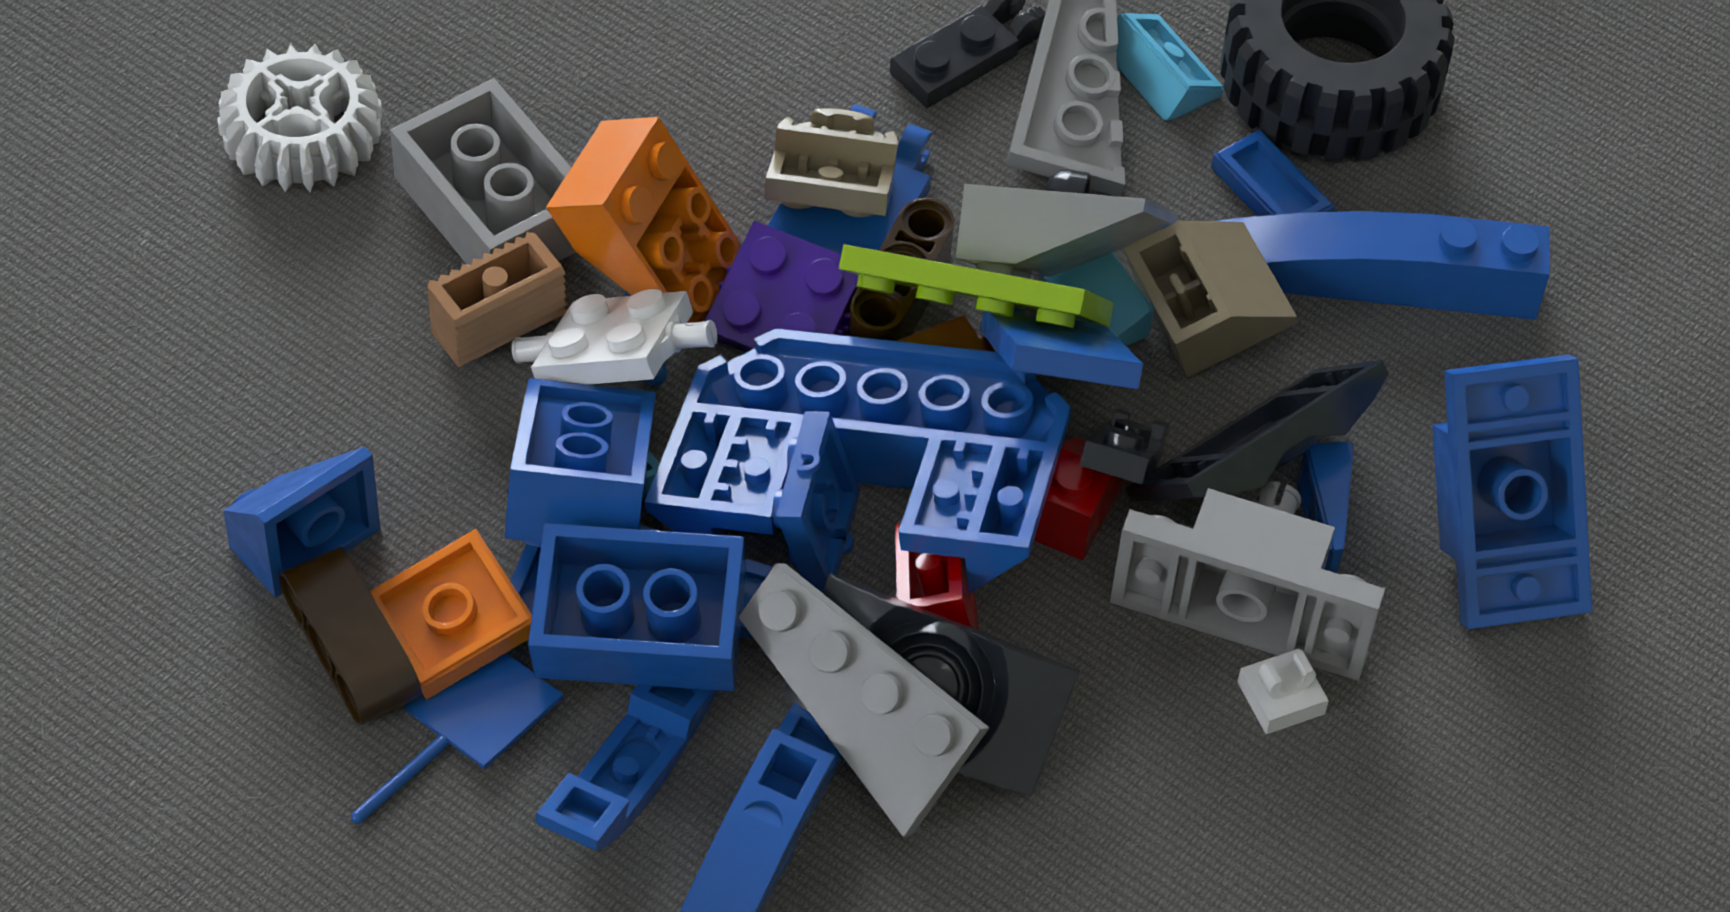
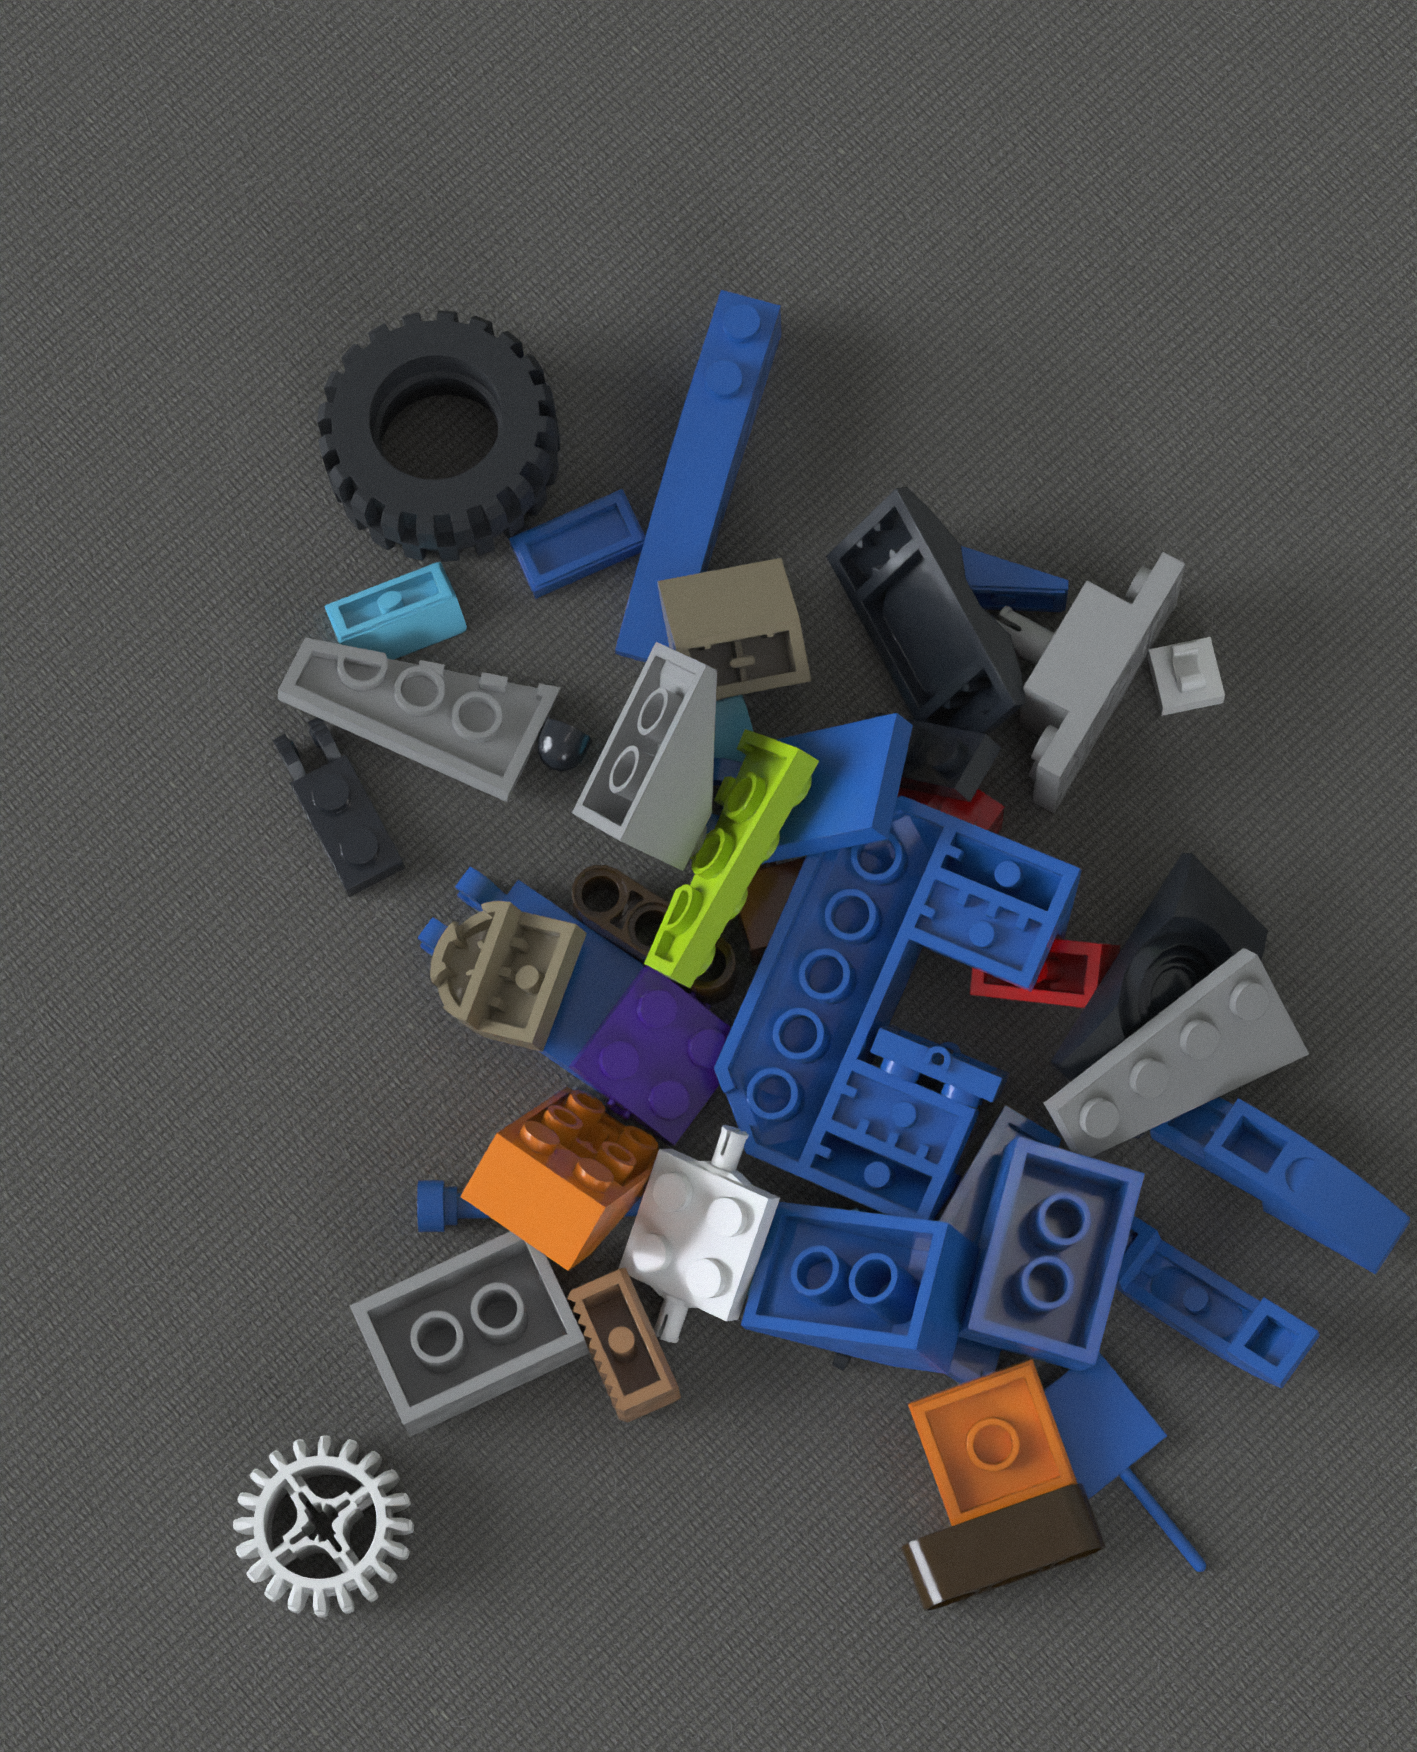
camera: 70 degrees left, 20 degrees up
(304, 515) = (869, 1585): blue slope -> none
(1514, 491) = (1045, 409): blue brick -> none

